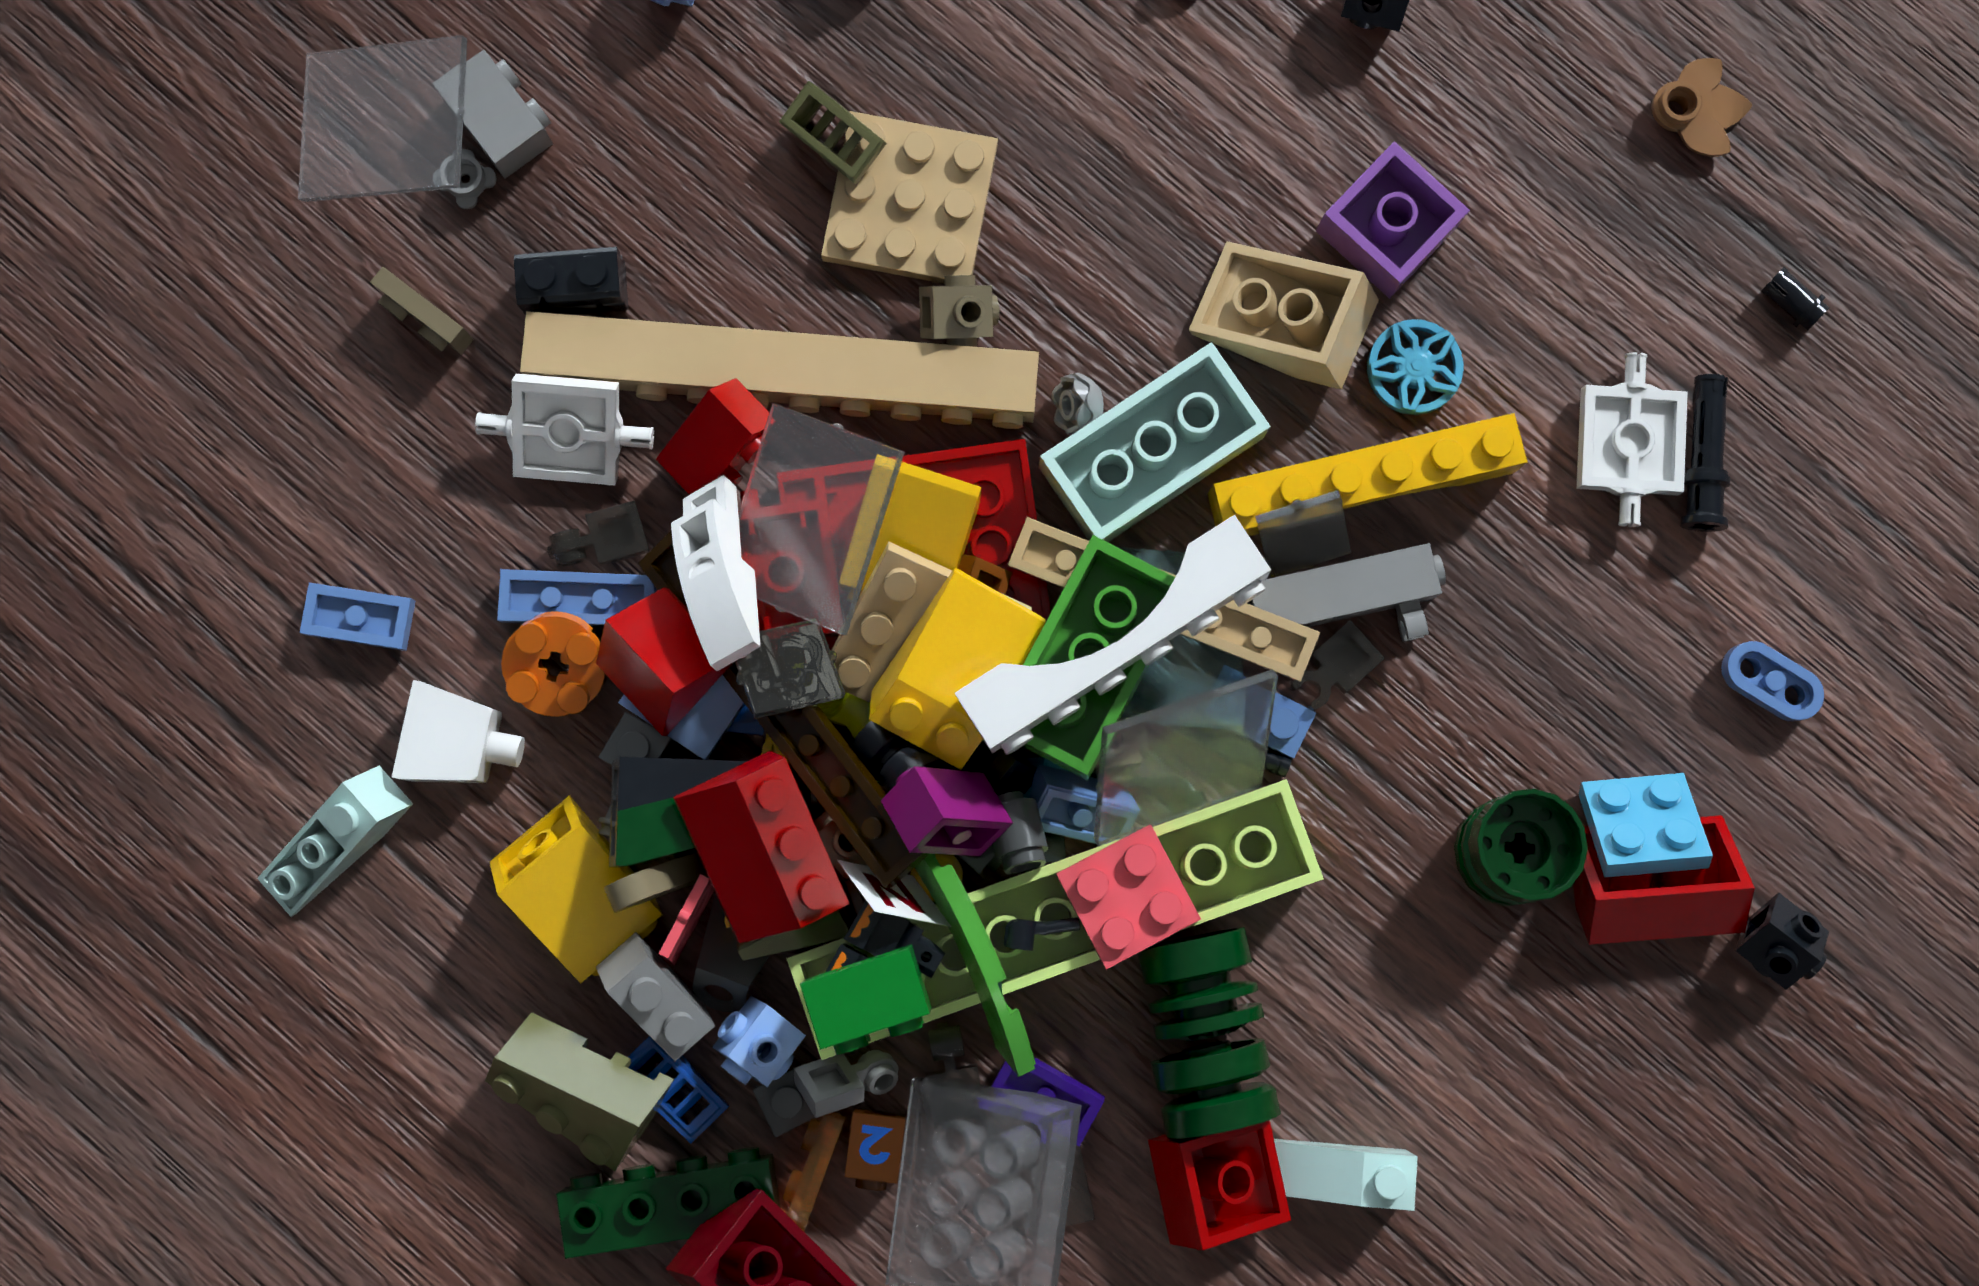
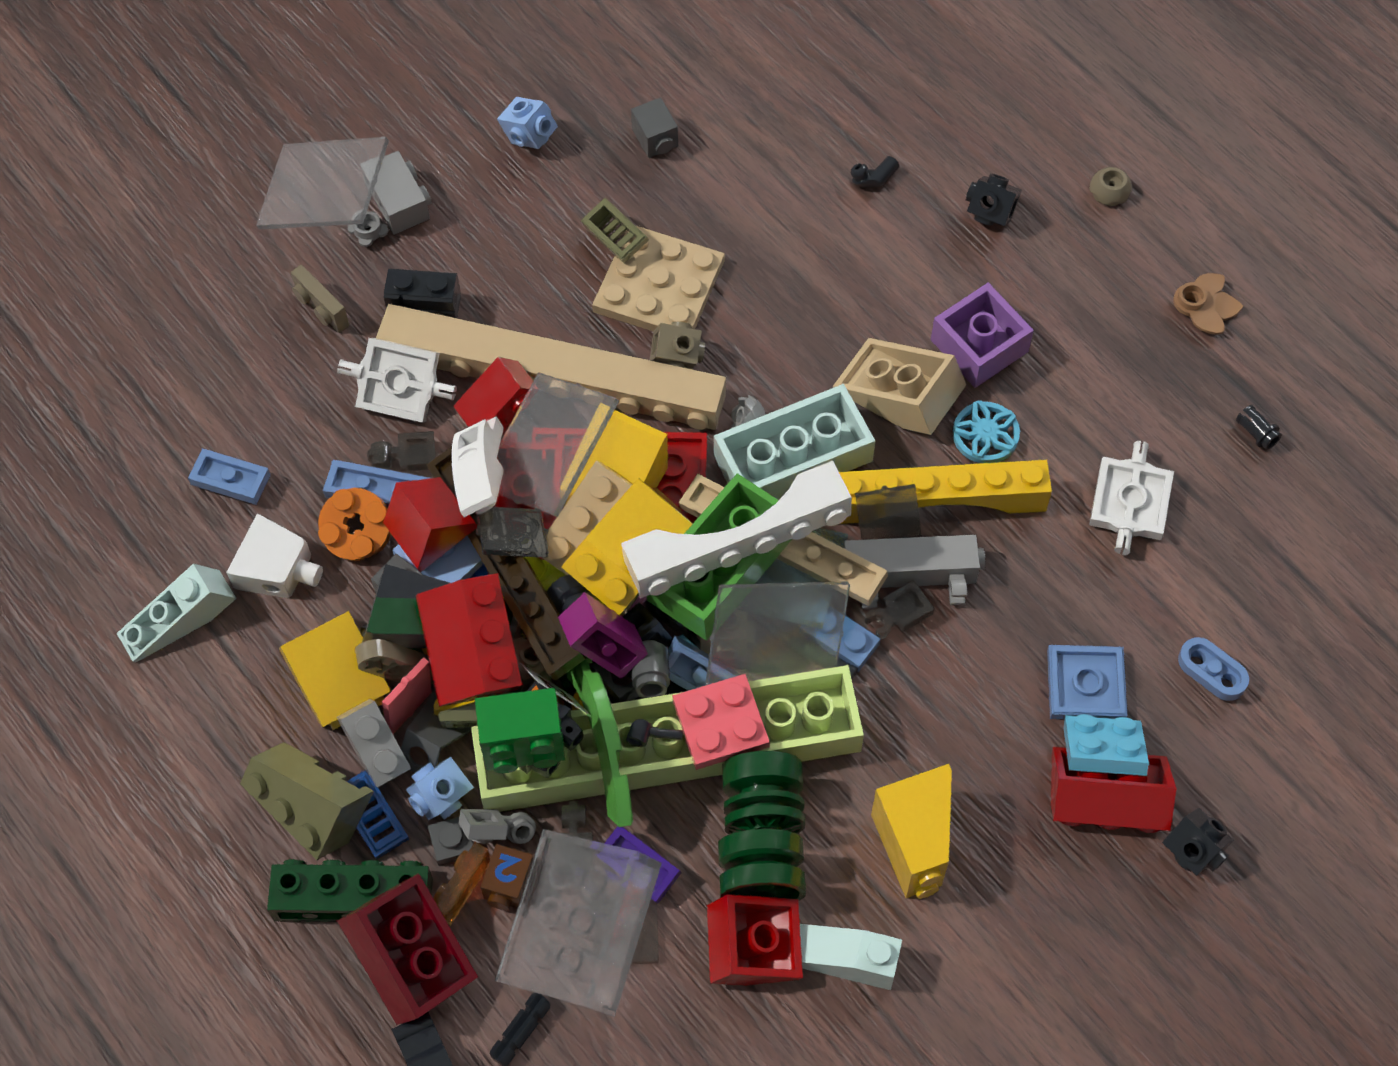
camera: 15 degrees right, 20 degrees down
(1416, 996) = (916, 829): none -> yellow slope
(1544, 831) = (1013, 724): dark green wheel -> none
(1603, 726) = (1086, 681): none -> medium blue tile
(1706, 477) = (1182, 529): black pin -> none

